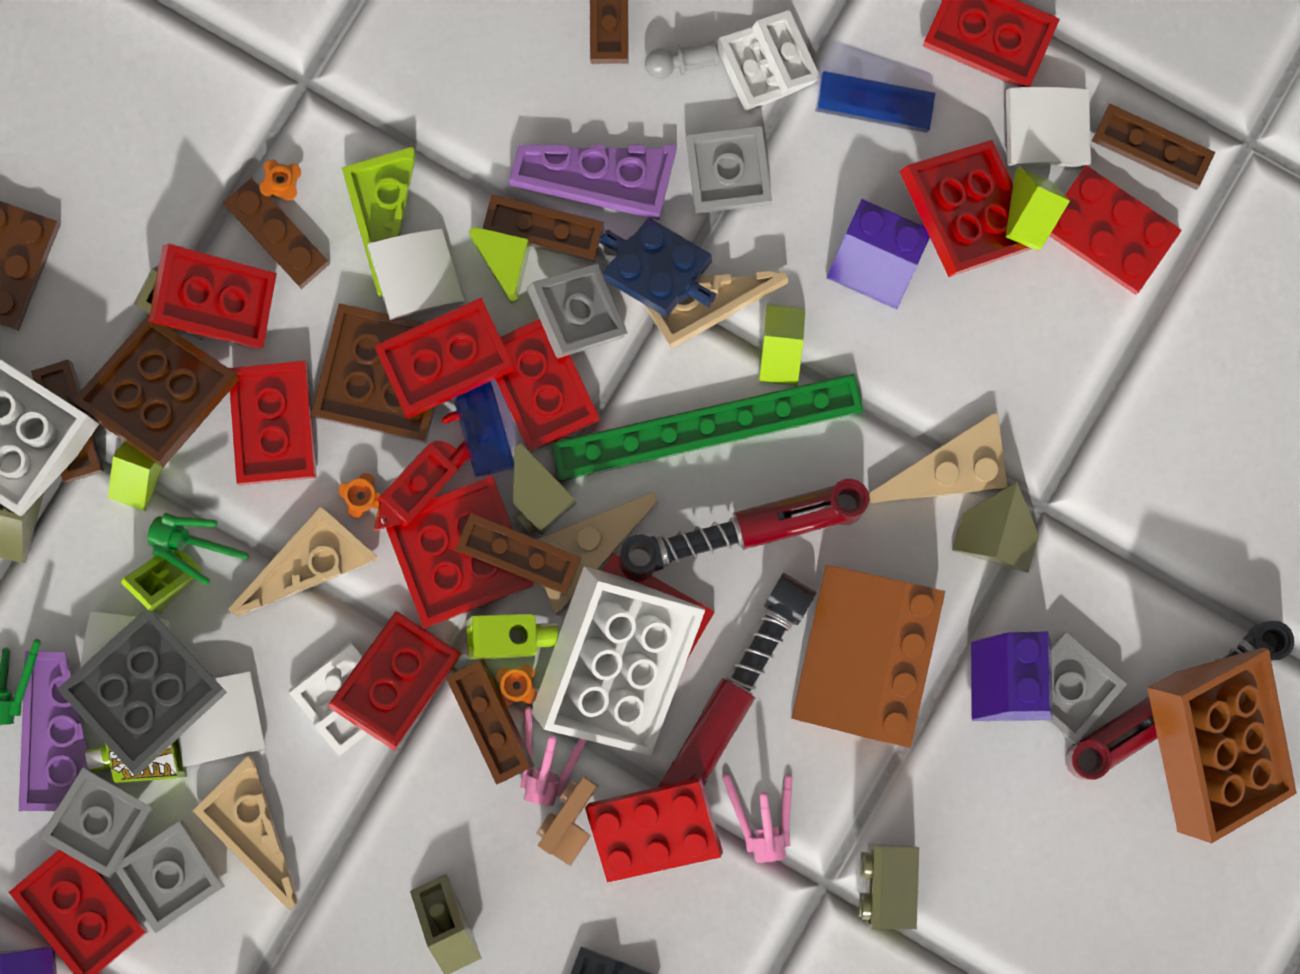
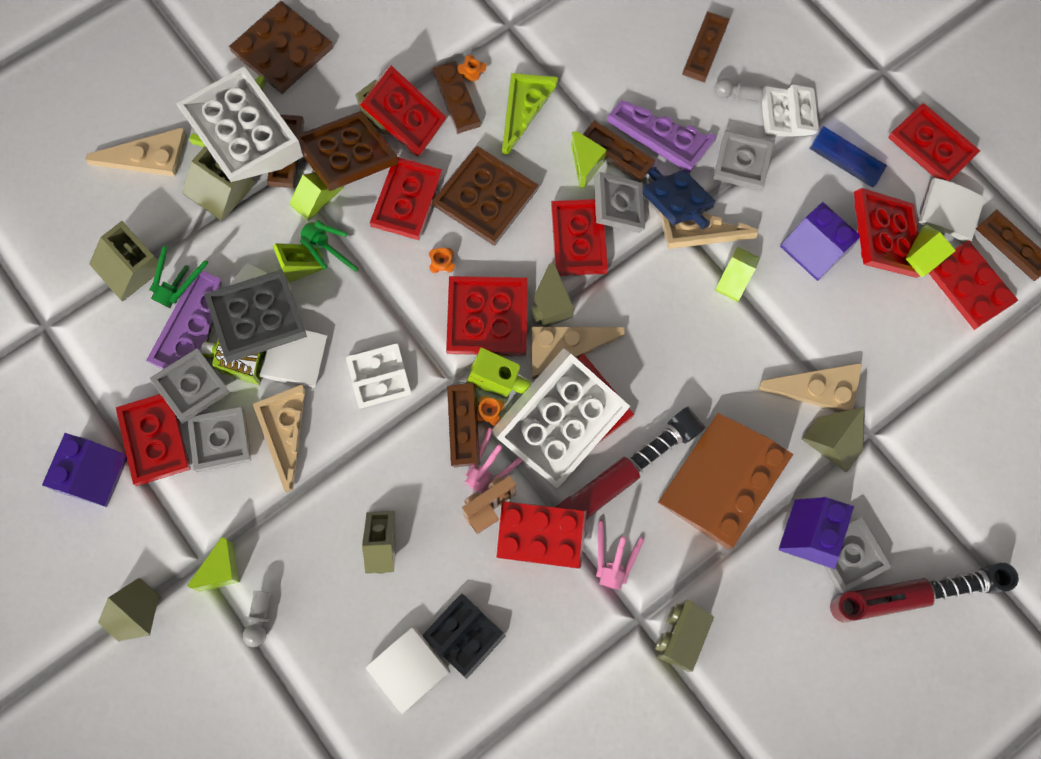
camera: 15 degrees right, 10 degrees down
(312, 556) = (395, 283): tan wing -> none
(394, 680) = (414, 374): red tile -> none
(415, 273) = (529, 146): white slope -> none
(420, 481) = (486, 260): red plate -> none
(444, 358) = (527, 196): red plate -> none
(484, 431) = (534, 241): clear blue tile -> none
(518, 554) = (525, 327): reddish brown plate -> none
(707, 427) = (673, 303): green tile -> none
(749, 528) = (677, 369): piece -> none
(1222, 743) = (947, 631): dark orange slope -> none

